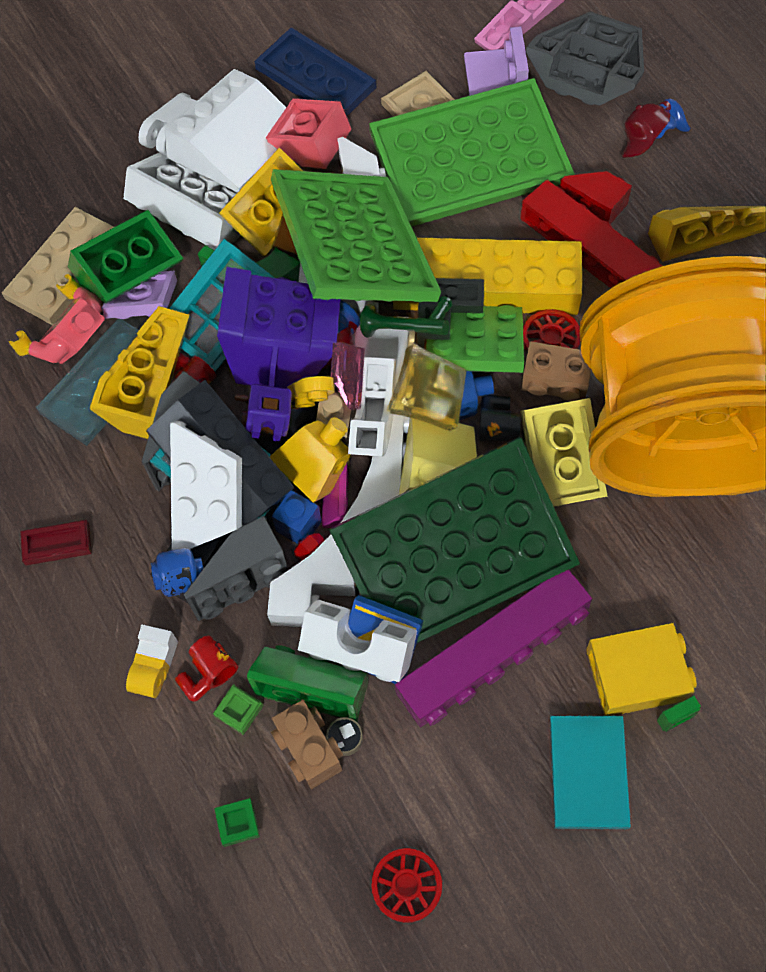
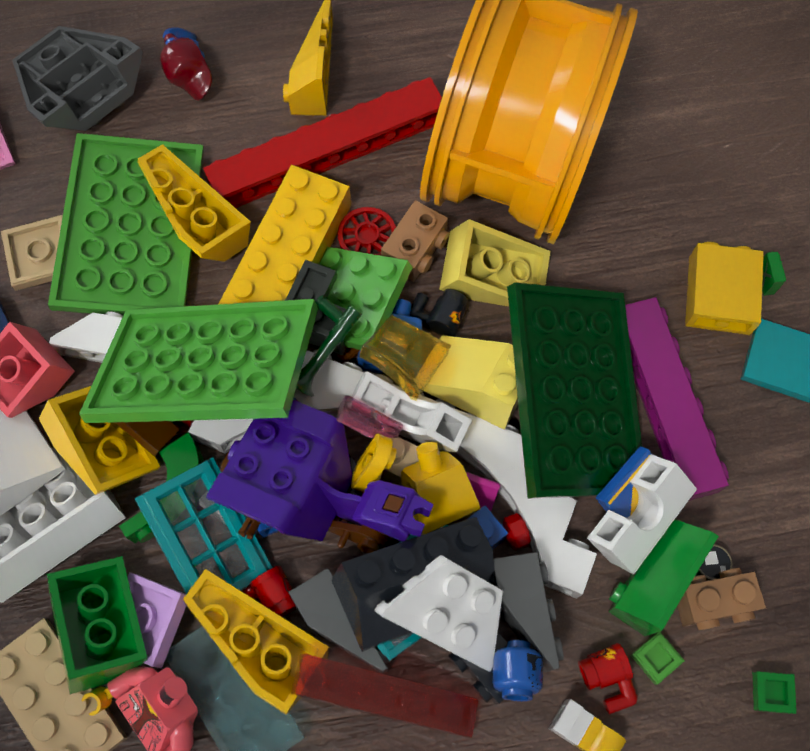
camera: 75 degrees left, 5 degrees up
(128, 482) = (384, 696): none -> clear red plate
(497, 189) = (194, 208): none -> yellow wedge
(498, 67) = (40, 162): lavender bracket -> none
(599, 192) = (236, 131): red slope -> none

